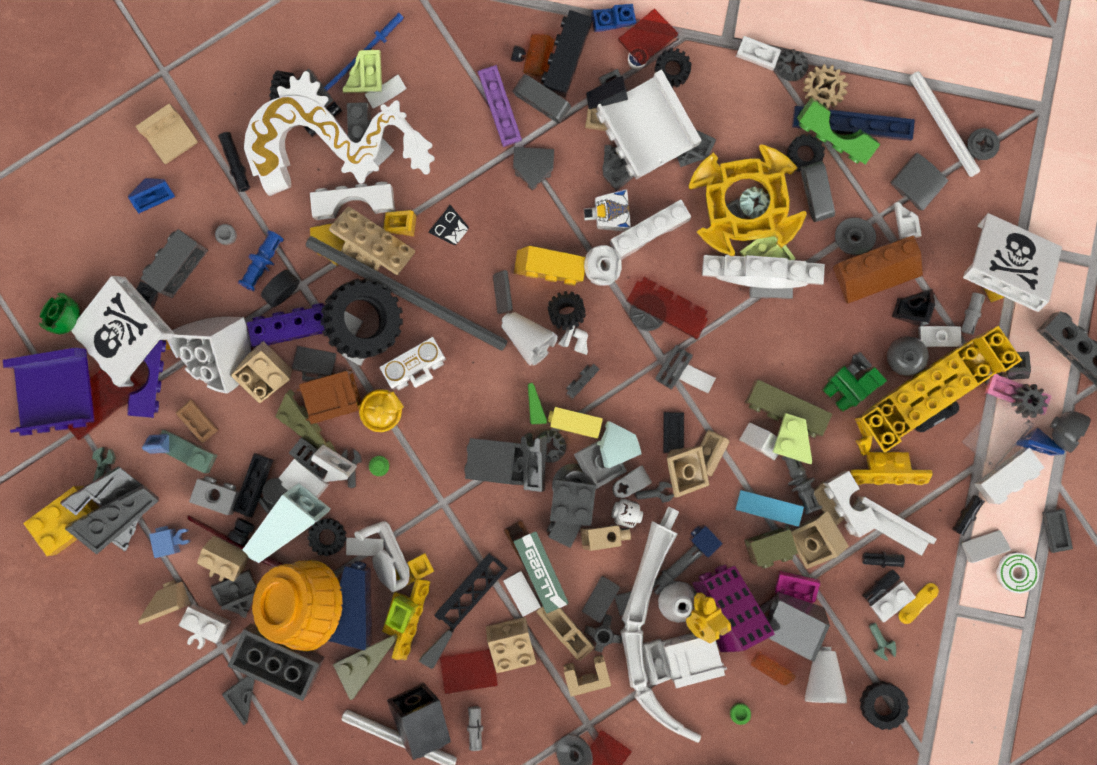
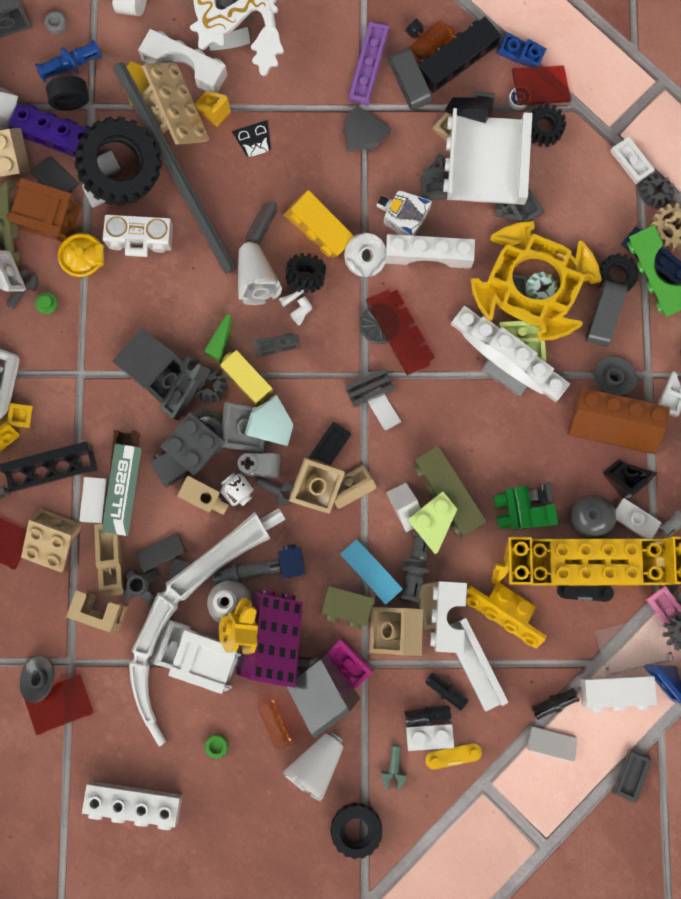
camera: 35 degrees right, 5 degrees down
(1029, 575) = (581, 790): white tile -> none

